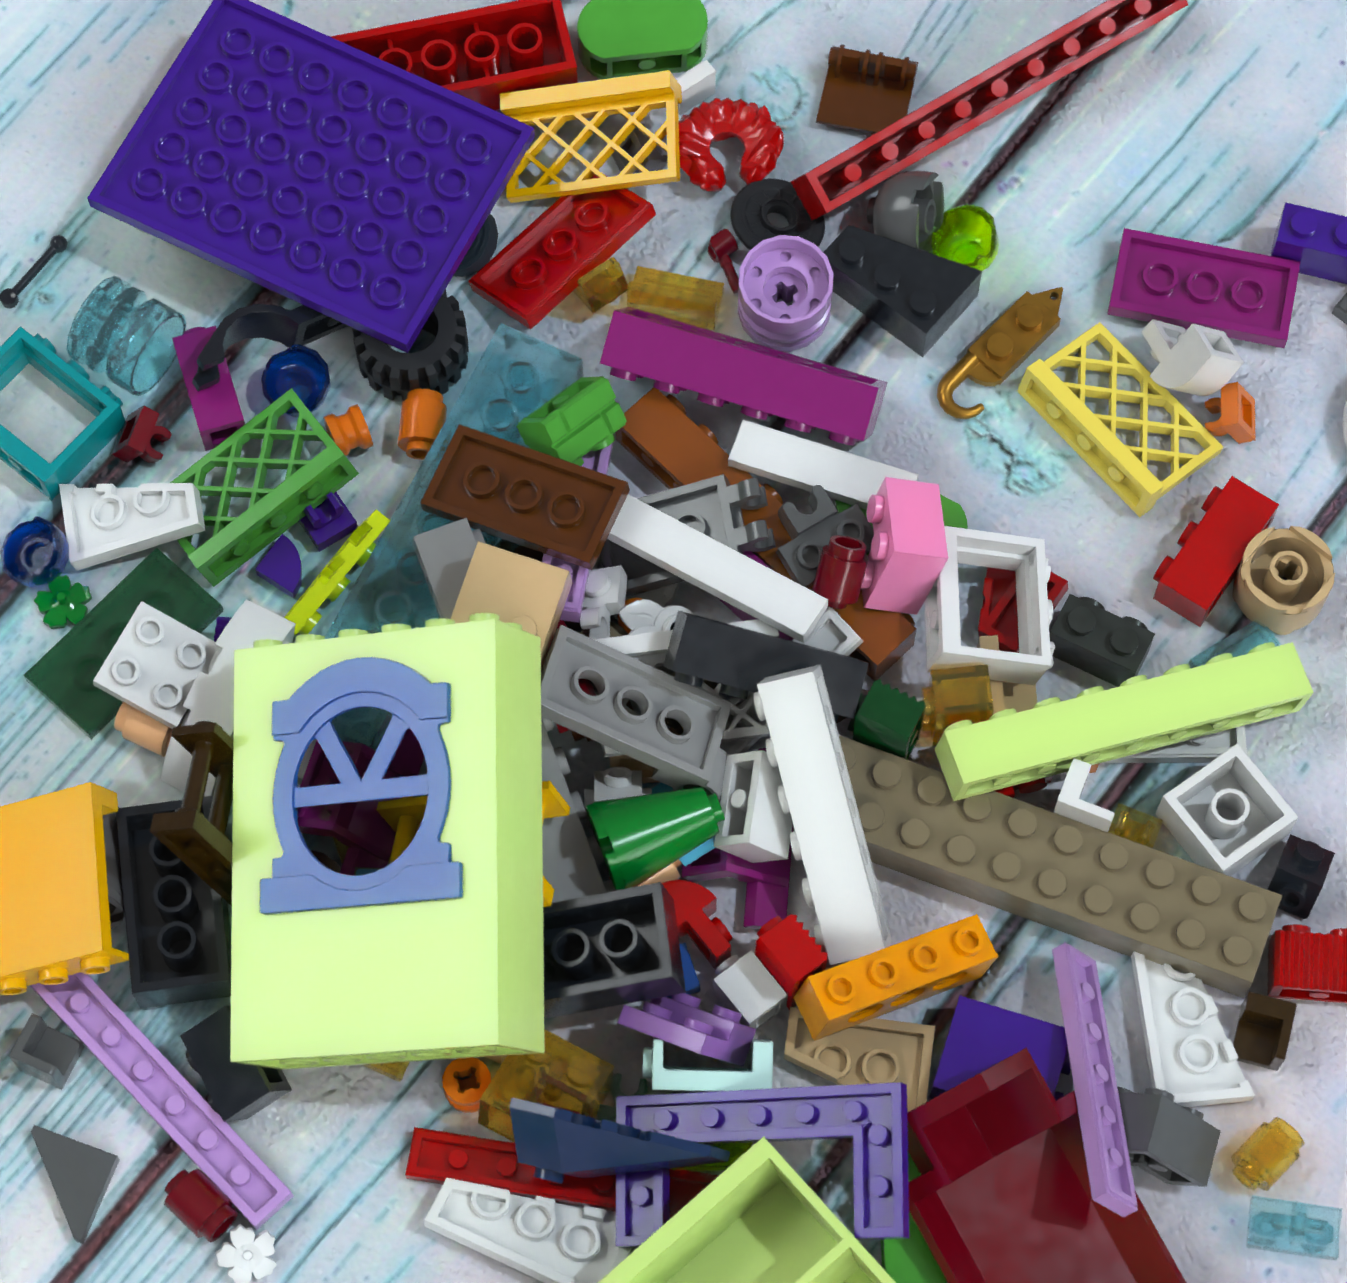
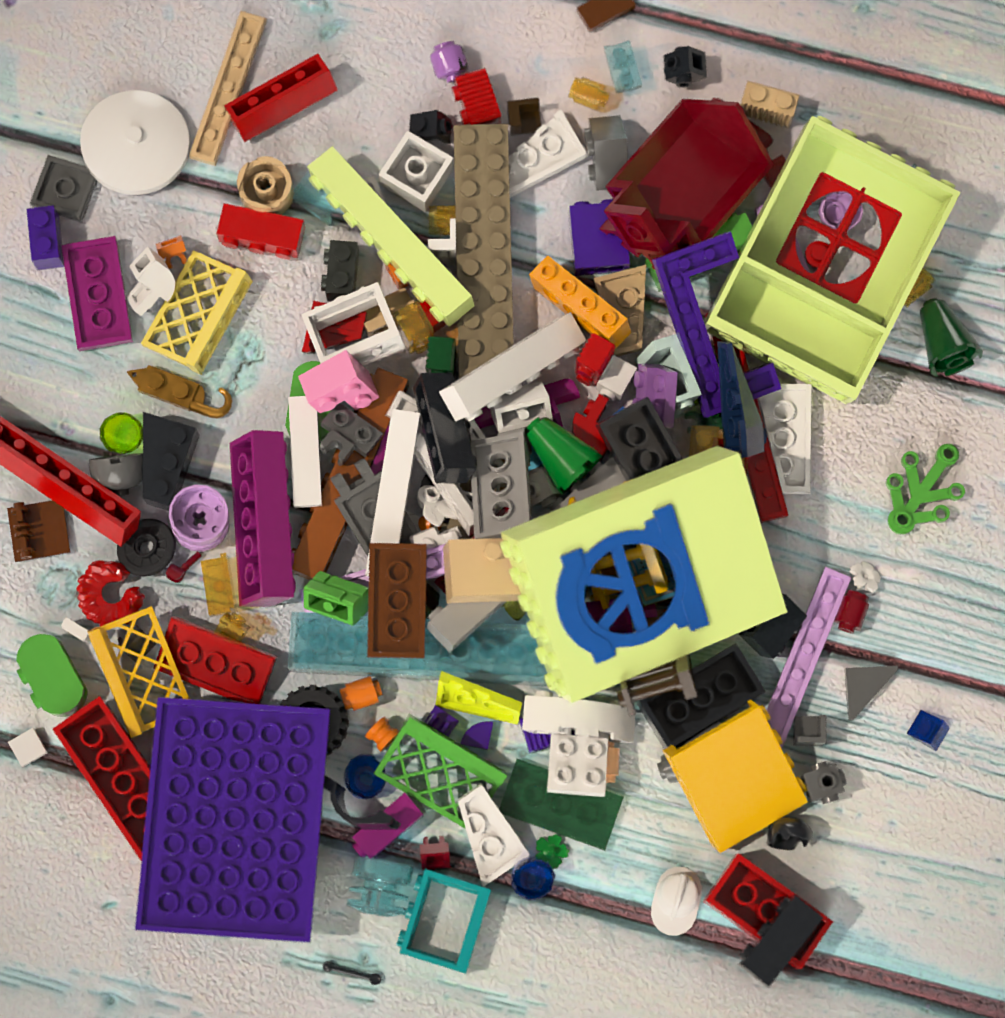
camera: 115 degrees left, 10 degrees up
(841, 571) = (369, 411): dark red brick -> none
(1094, 1081) = (594, 182): lavender tile -> none

